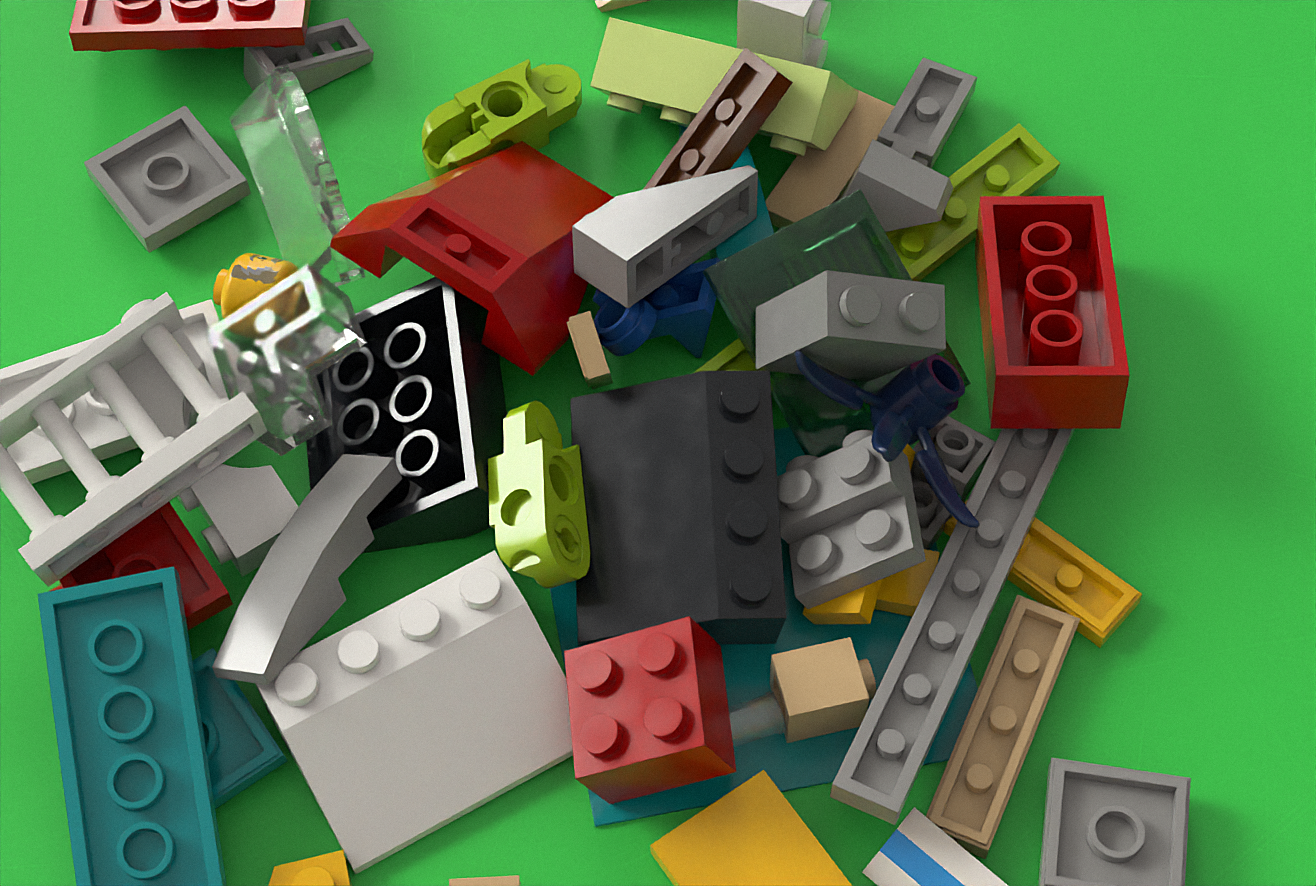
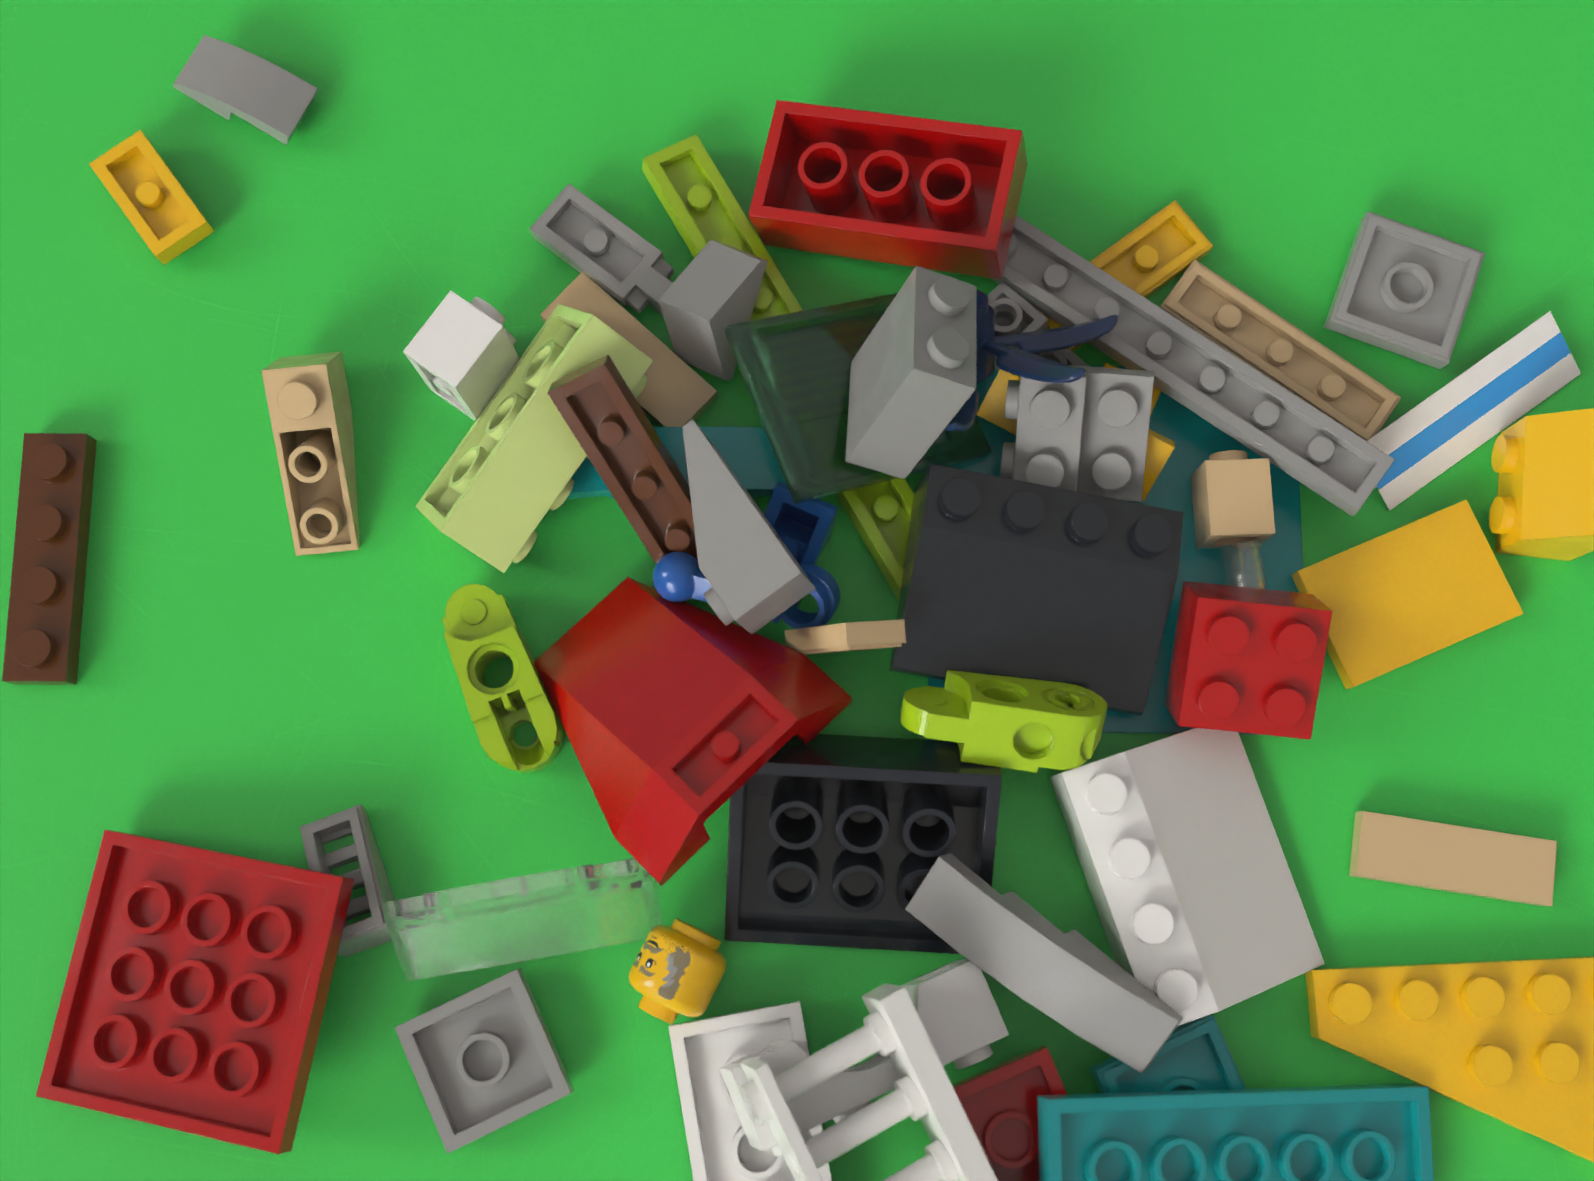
camera: 80 degrees left, 20 degrees up
(280, 346) = (780, 971): clear brick -> none

